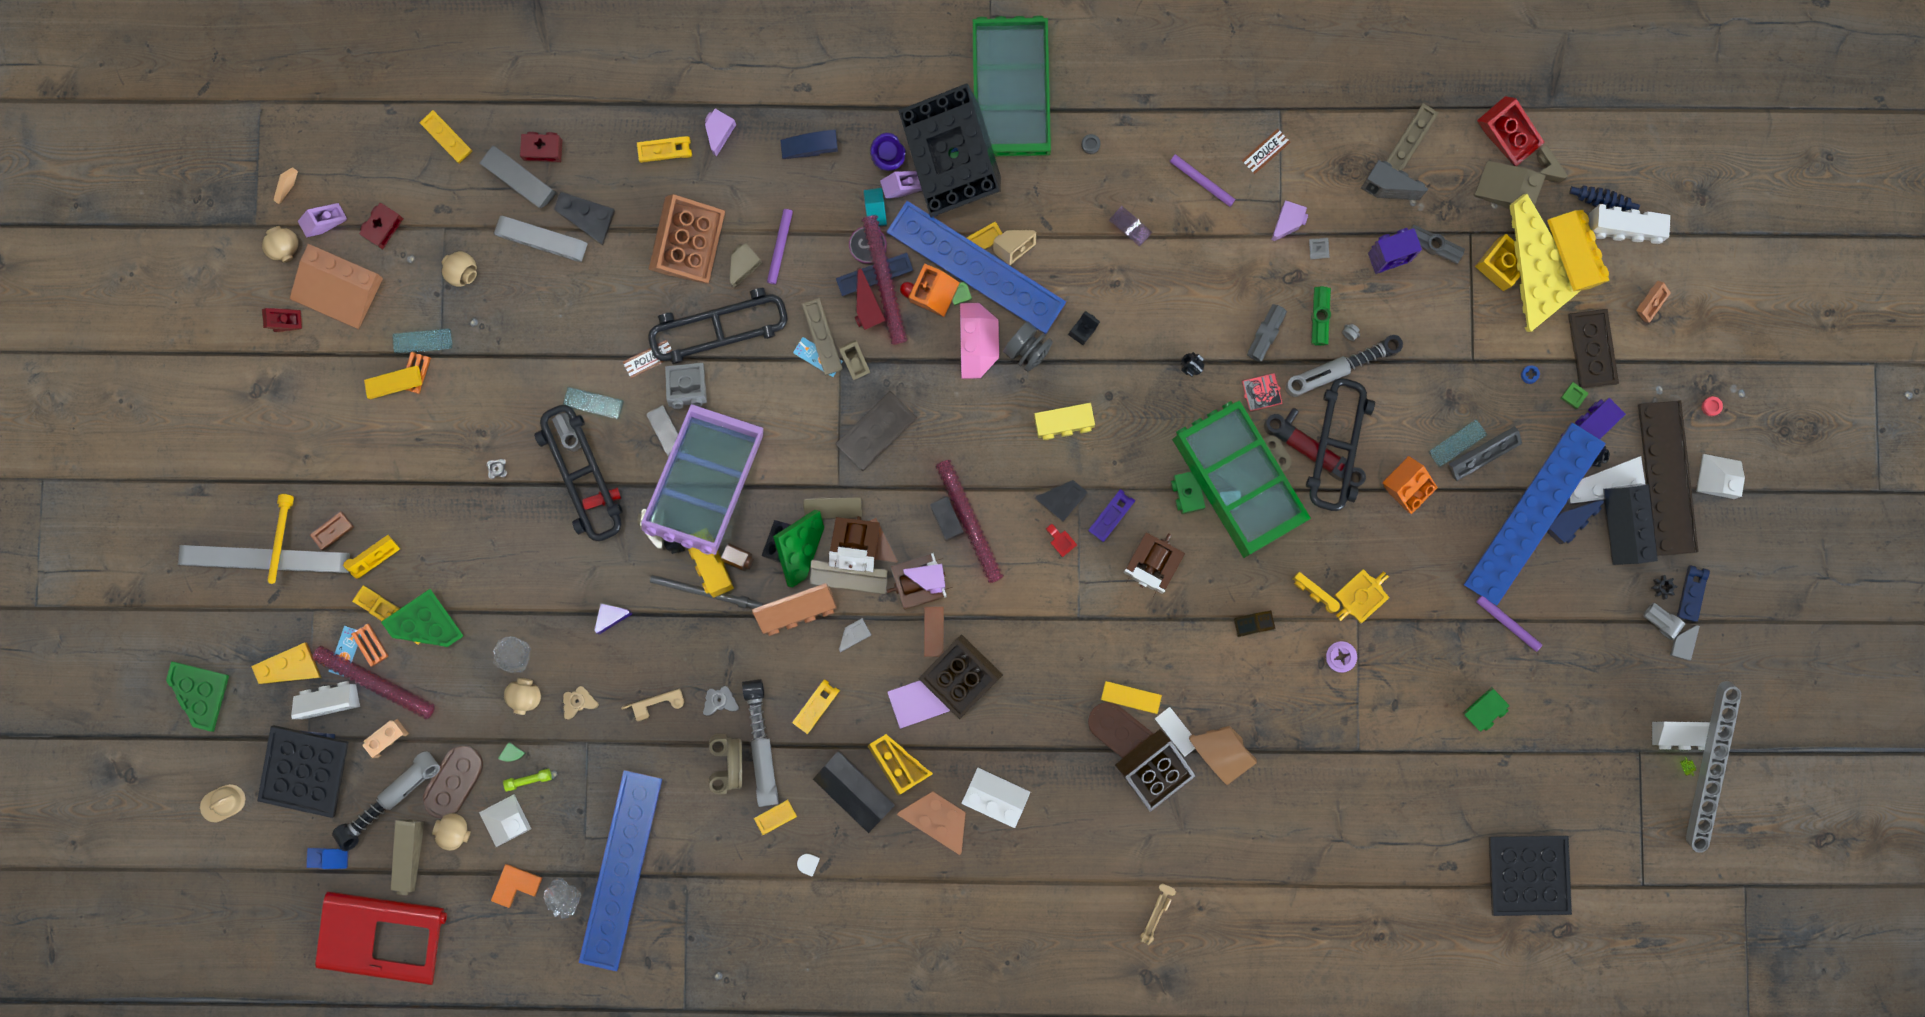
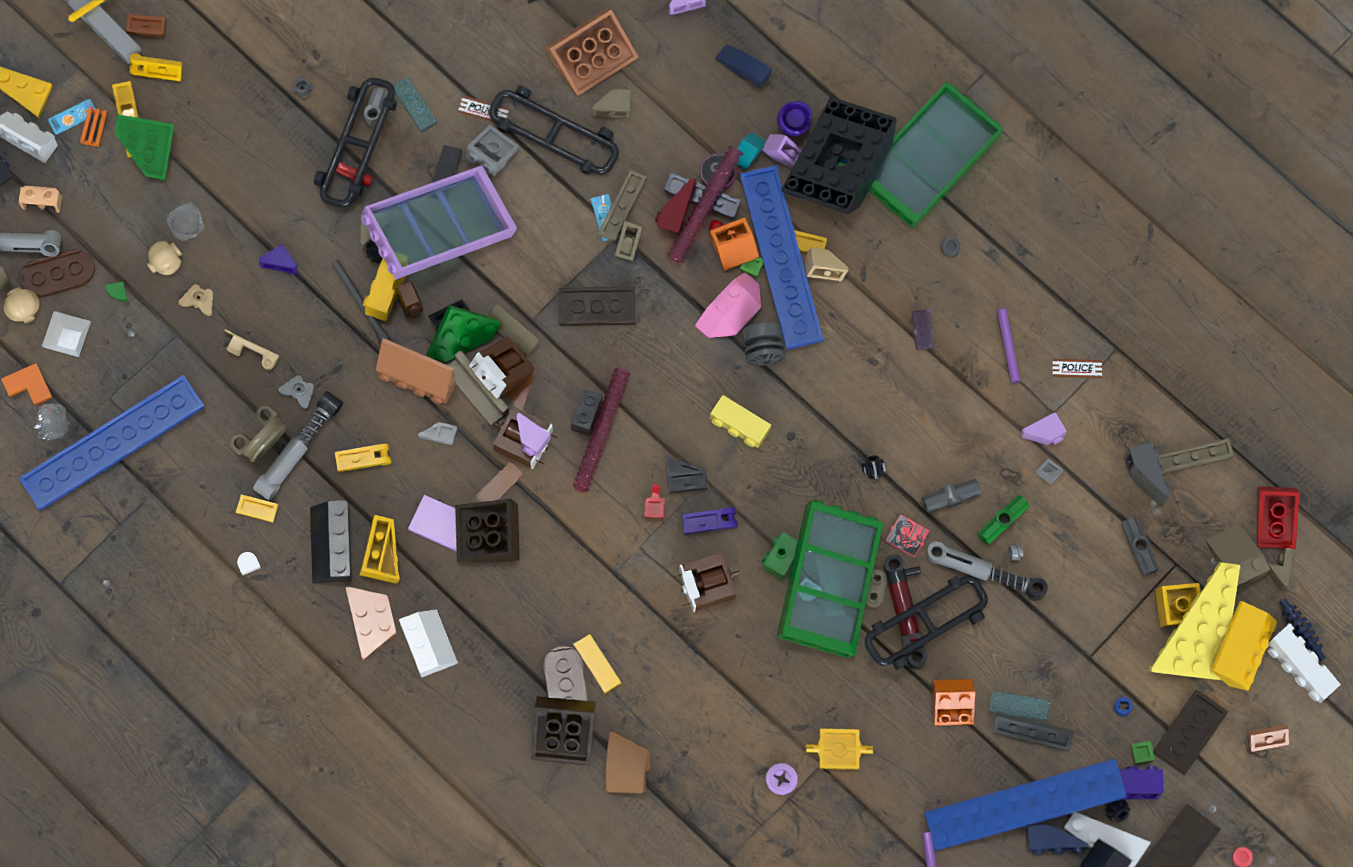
camera: 35 degrees right, 10 degrees down
(373, 682) = (71, 154): clear pink piece -> none
(543, 776) = (96, 312): lime bar -> none
(779, 246) = (653, 116): medium lavender piece -> none
(1084, 328) = (818, 370): black bracket -> none
(1162, 904) = (475, 830): tan piece -> none
(1176, 731) = (606, 718): white sticker -> none
(1254, 623) = (740, 695): slope -> none
(1317, 593) = (807, 714): yellow plate -> none
(1394, 250) = (1102, 518): dark purple brick -> none

